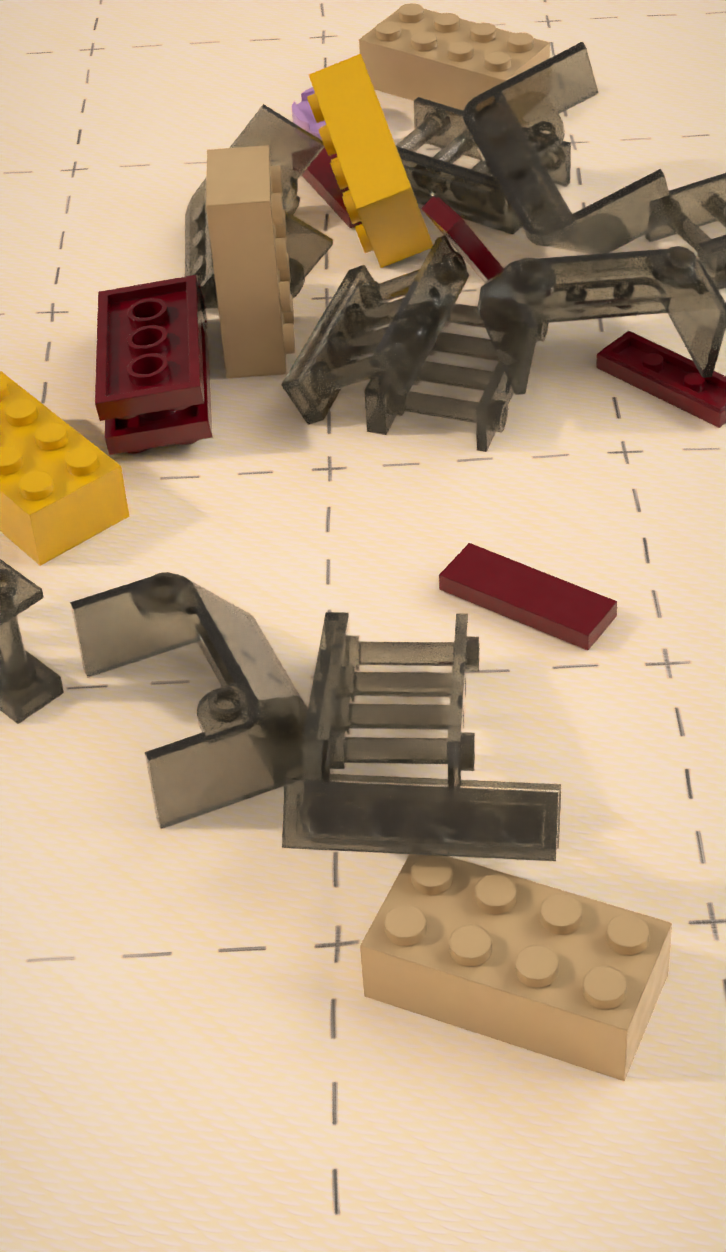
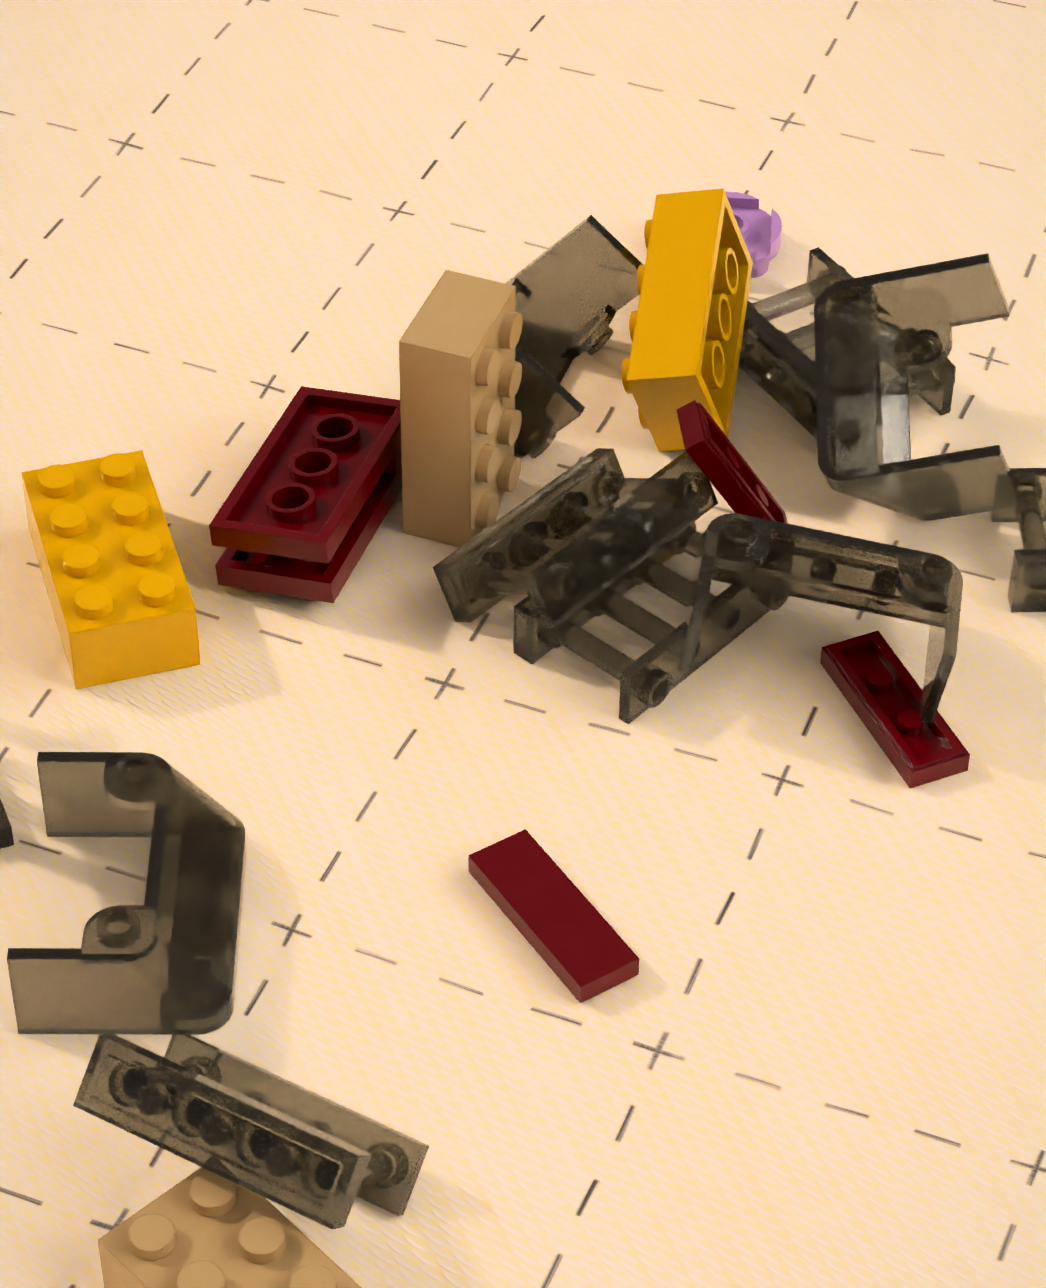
camera: 20 degrees right, 0 degrees up
(337, 684) = (273, 937): clear smoke fence -> none
(444, 56) = (895, 201): tan brick -> none

